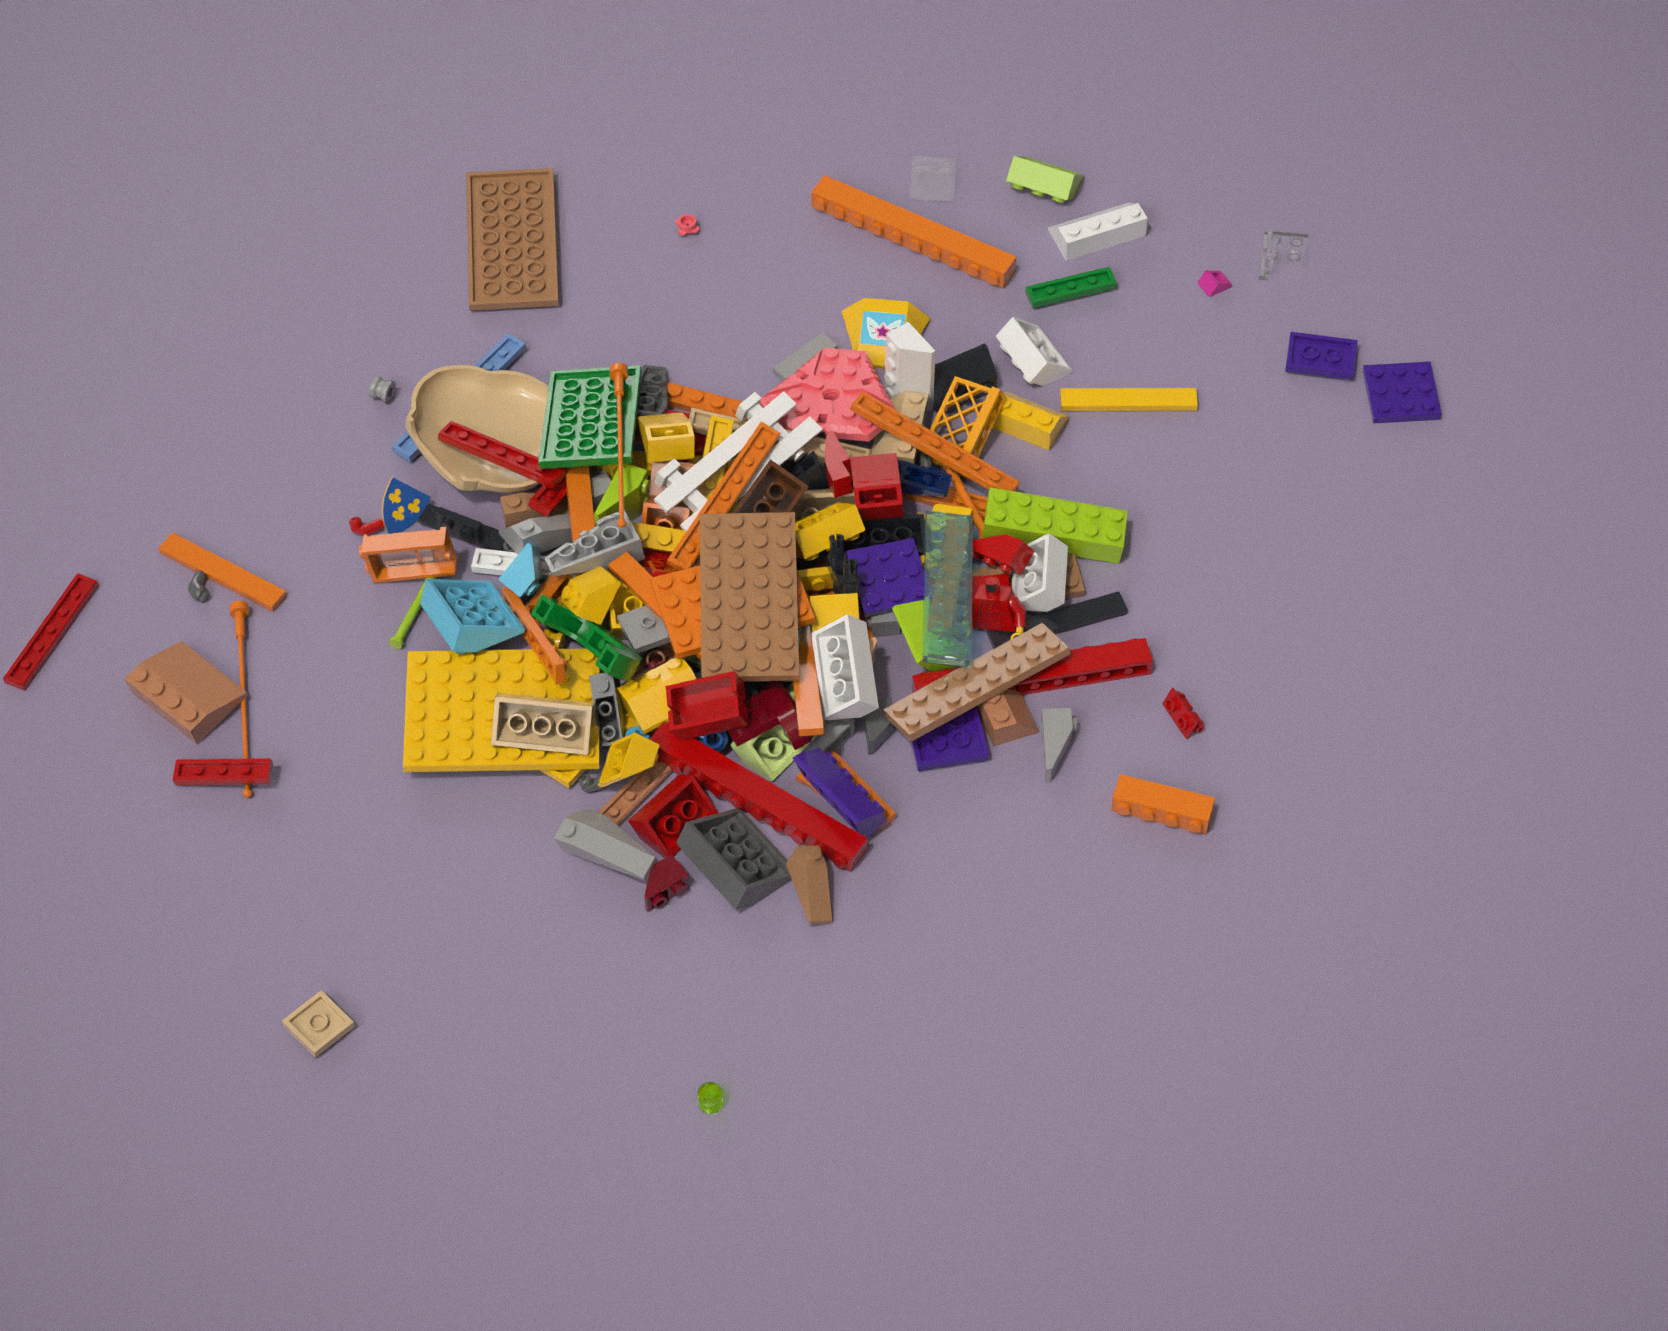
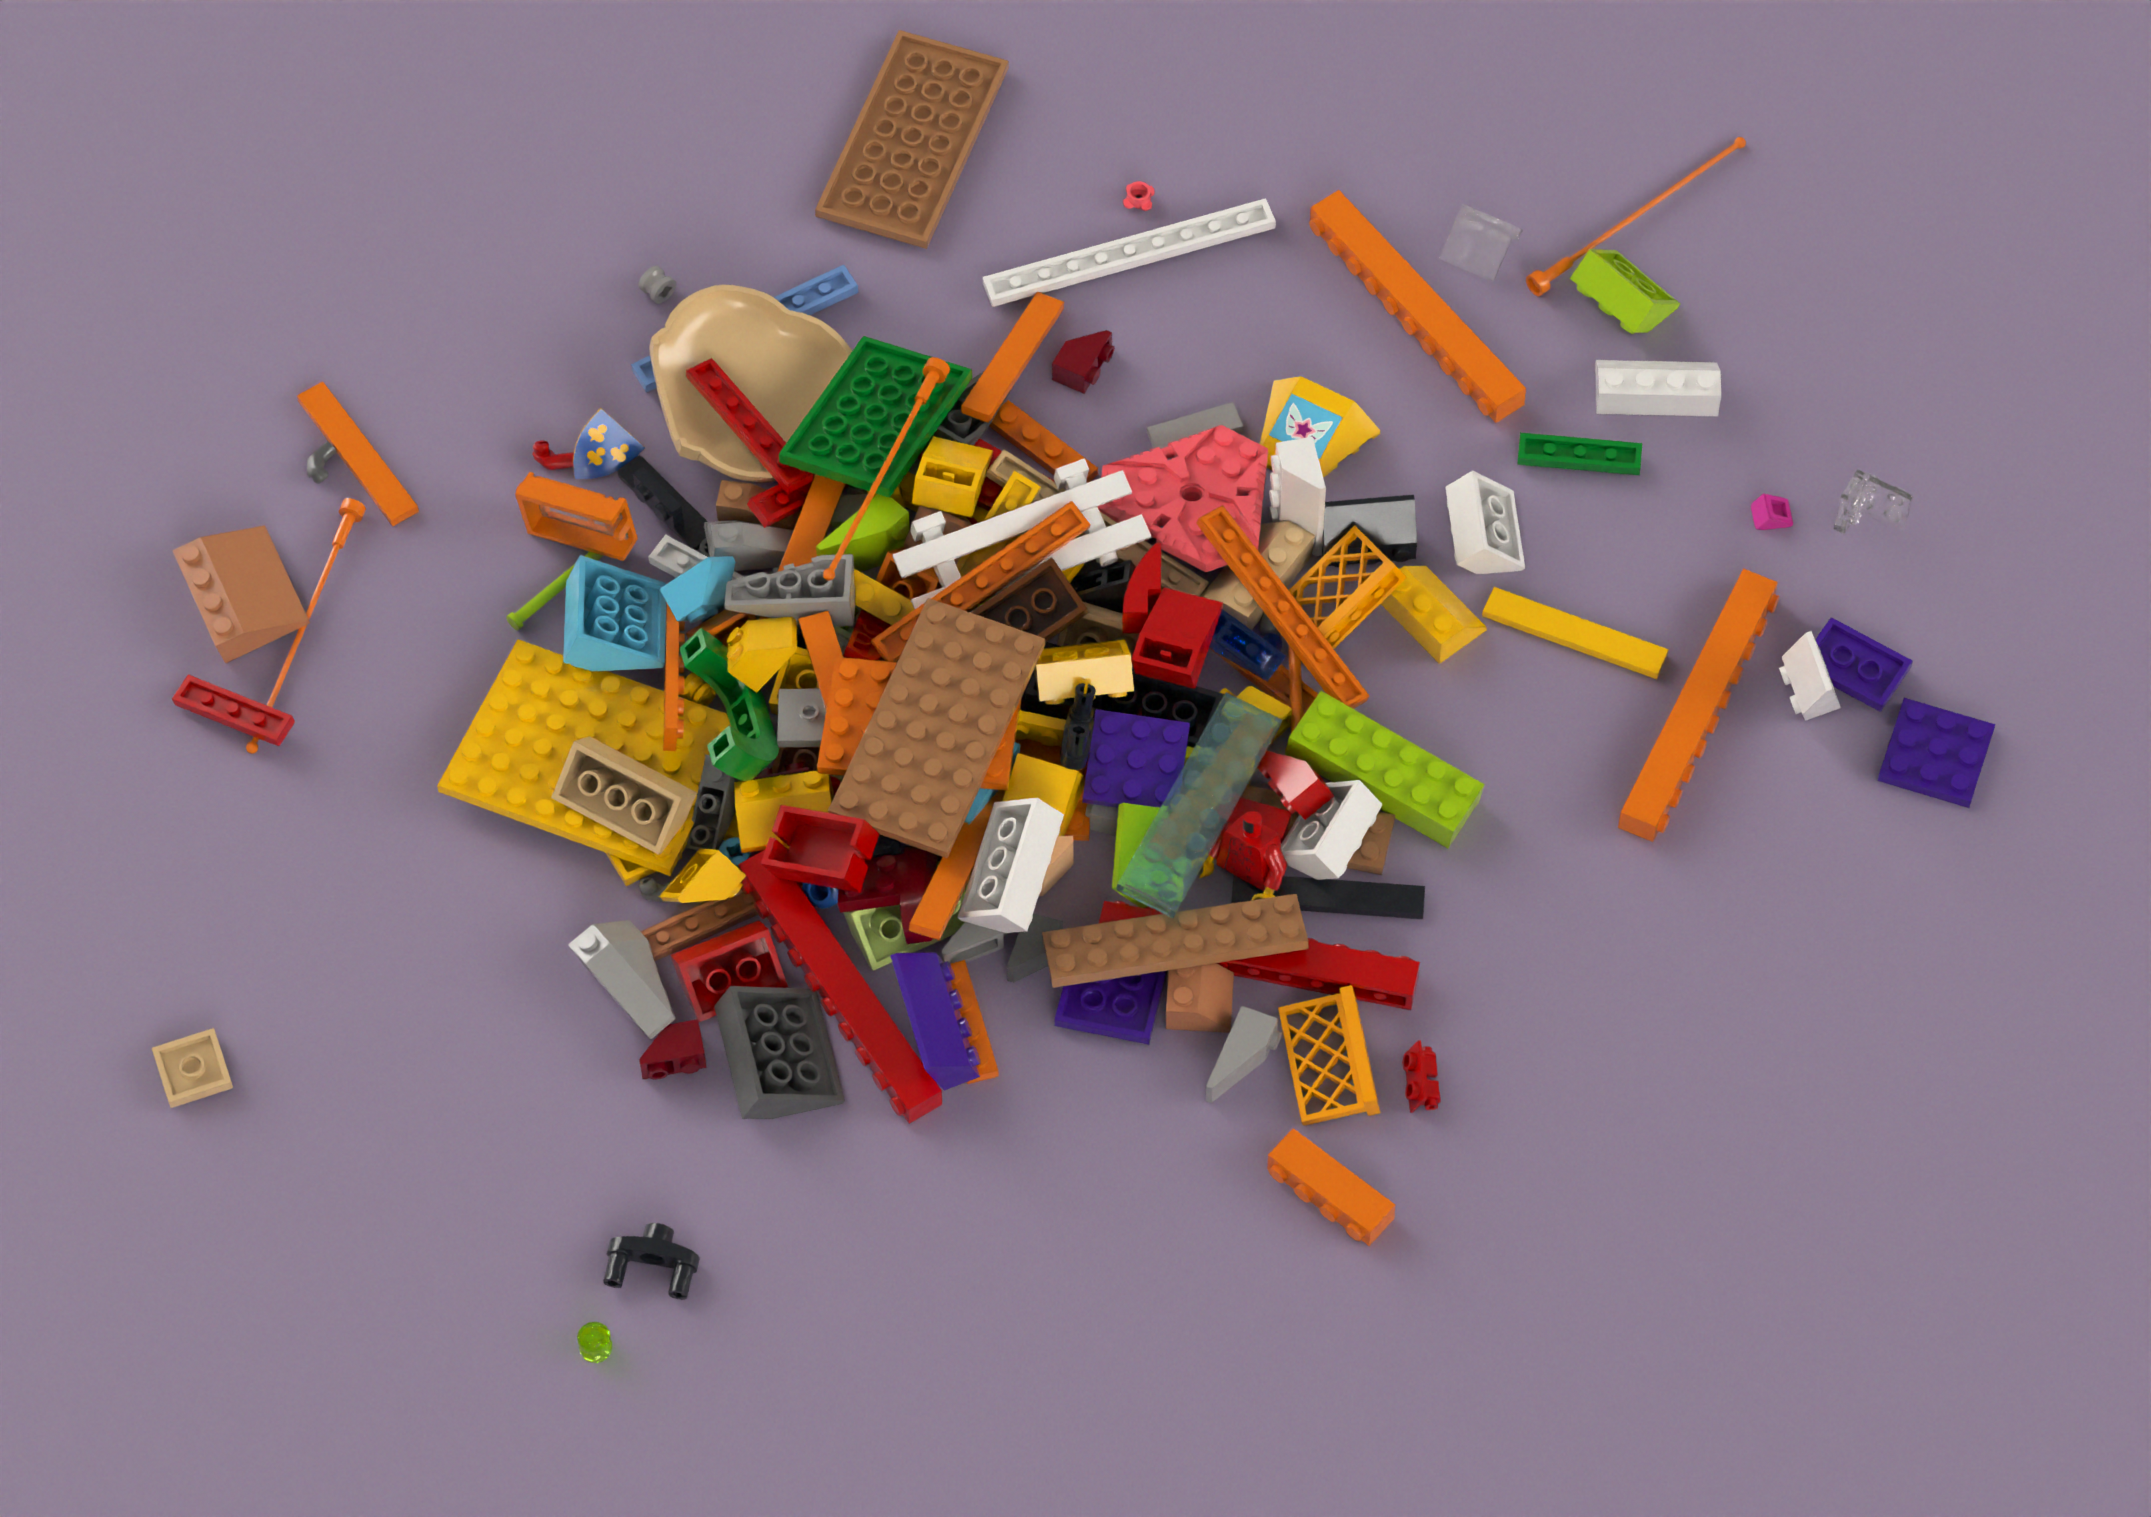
camera: 25 degrees right, 5 degrees up
(50, 632) = (126, 456): red tile -> none
(659, 352) = (1012, 357): none -> orange tile
(699, 262) = (1129, 252): none -> white plate
(705, 340) = (1081, 359): none -> dark red slope
(718, 1020) = (652, 1249): none -> black connector
(811, 883) = (848, 1121): medium nougat slope -> none
(985, 189) = (1539, 281): none -> orange piece
(1134, 714) = (1357, 1057): none -> light orange fence
(1235, 416) = (1698, 706): none -> orange brick
(1303, 369) = (1809, 679): none -> white slope

